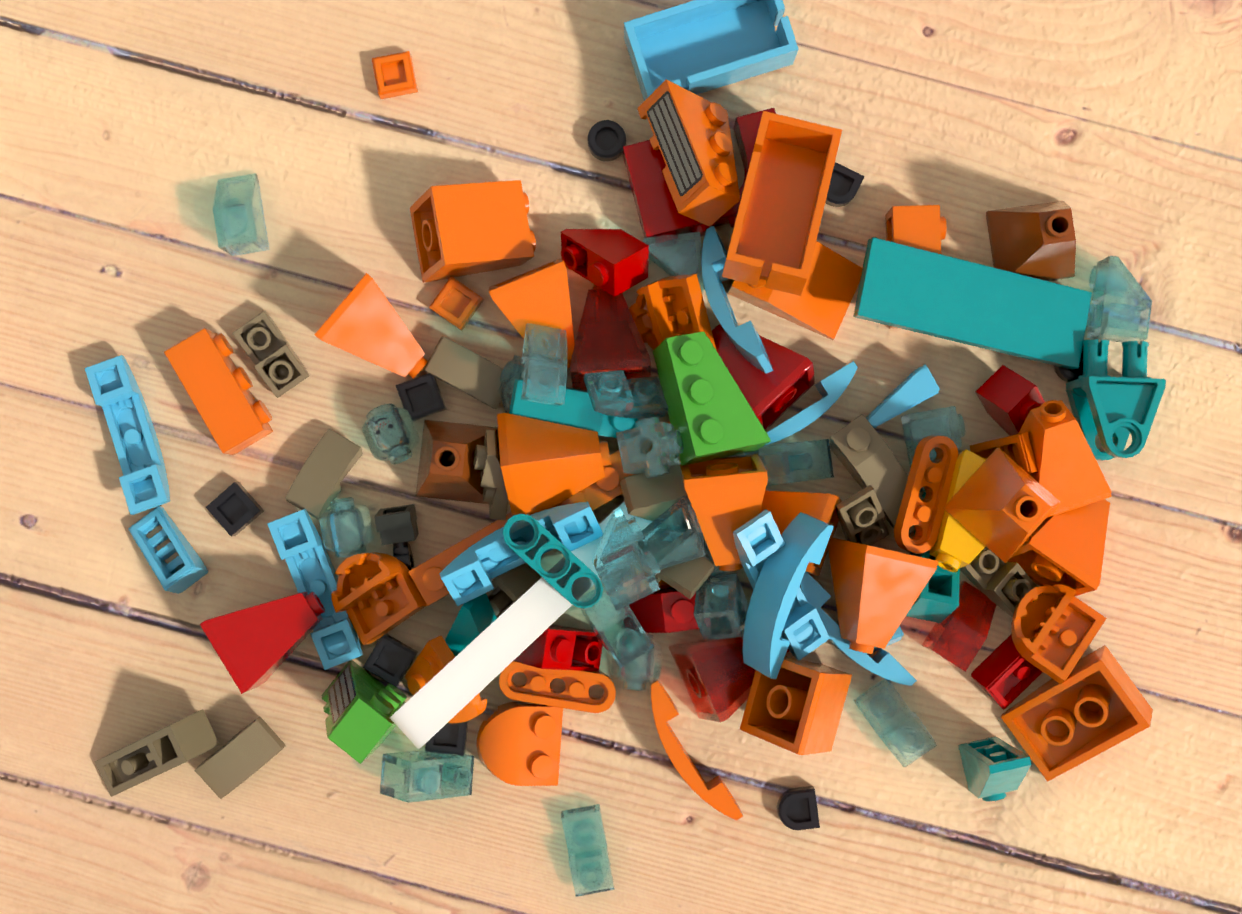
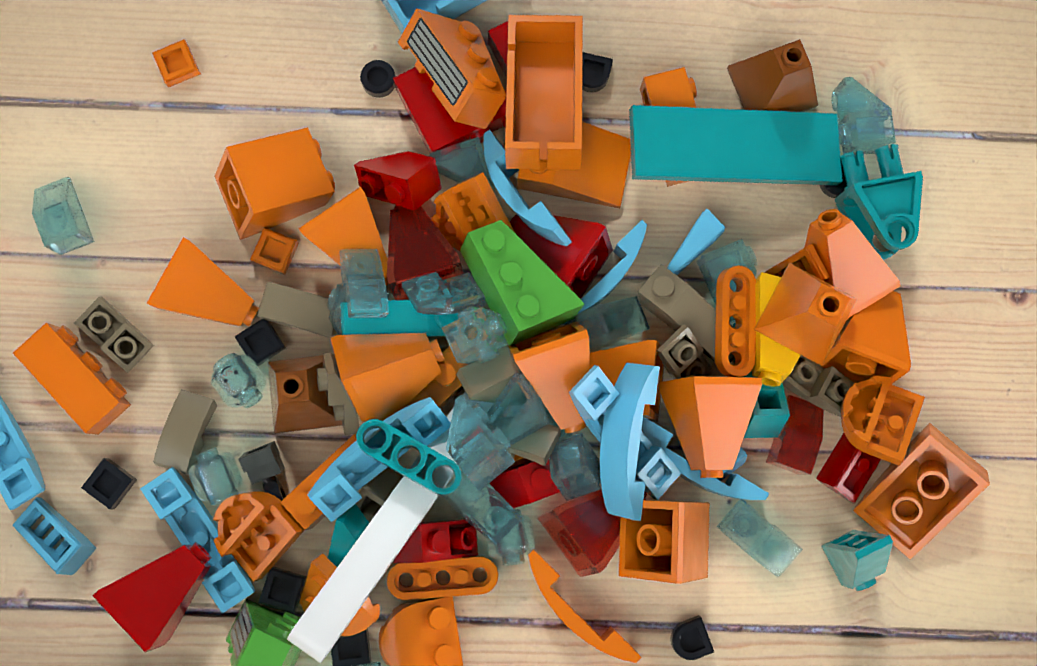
camera: 20 degrees left, 5 degrees down
(1009, 399) = (787, 222): red slope -> none

